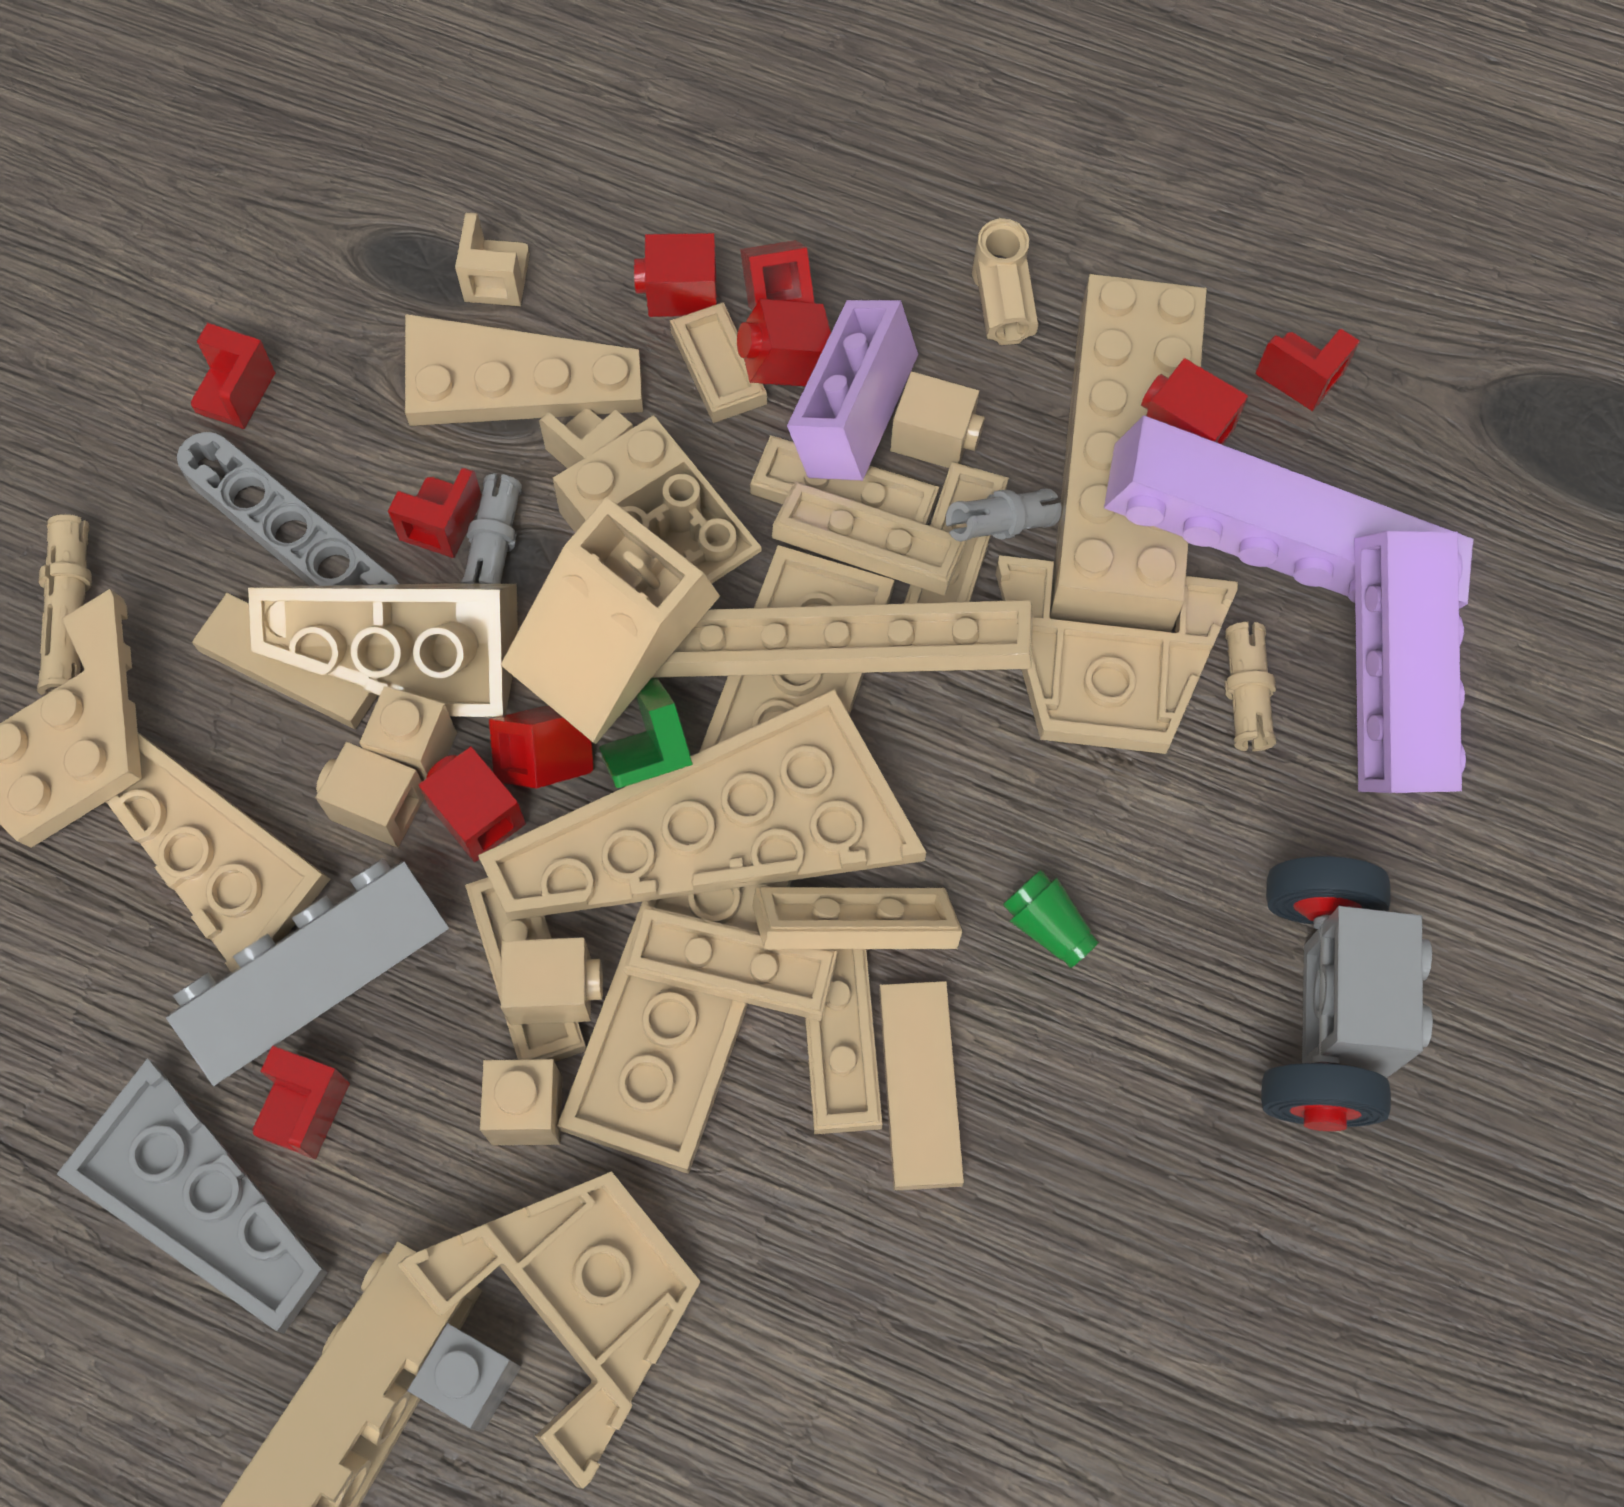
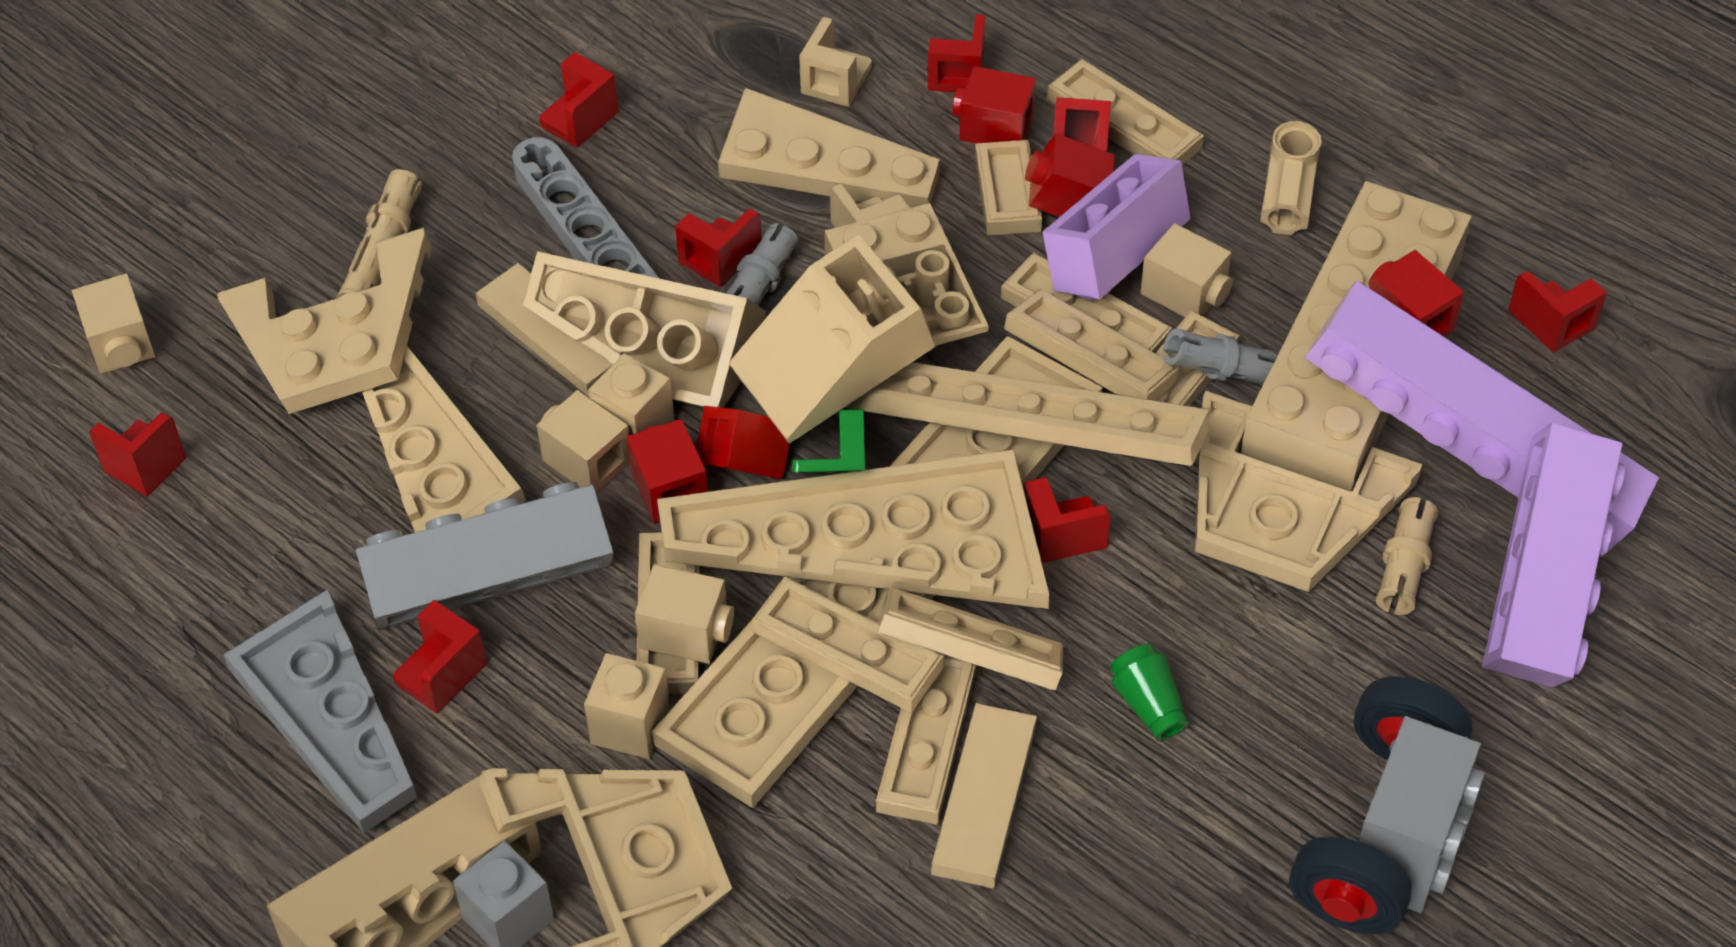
camera: 20 degrees right, 15 degrees down
(619, 225) = (953, 60): none -> red panel
(835, 255) = (1133, 119): none -> tan tile
(904, 744) = (1065, 526): none -> red panel

